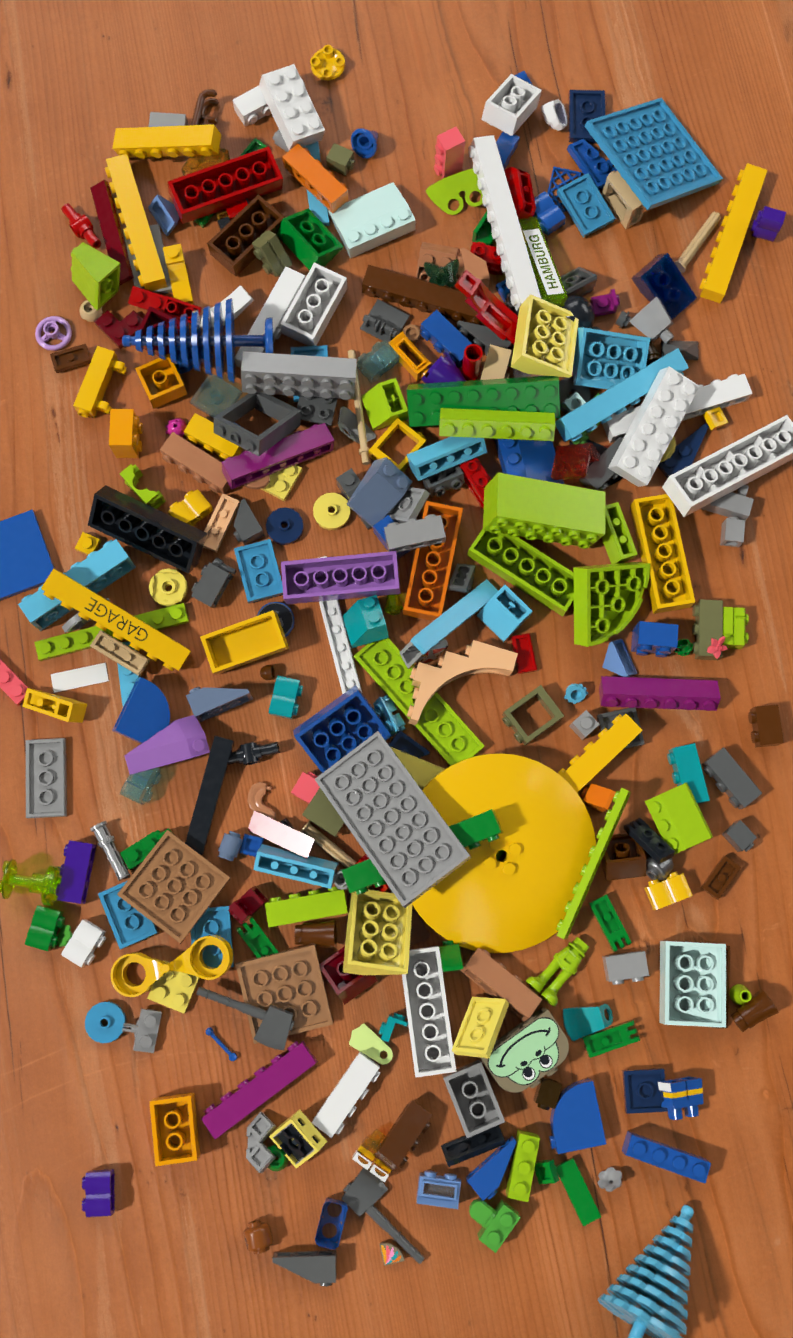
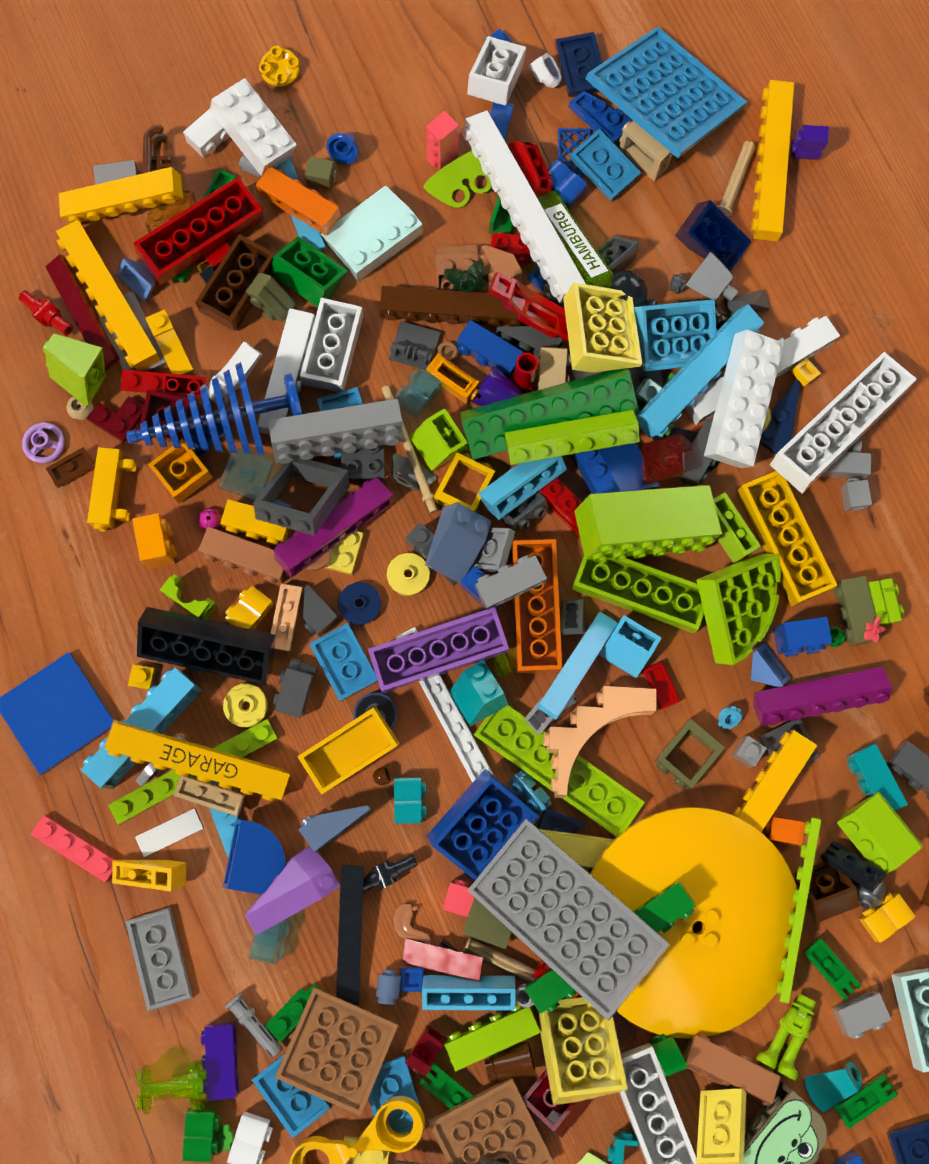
camera: 15 degrees left, 0 degrees up
(606, 303) = (654, 269): magenta bracket -> none

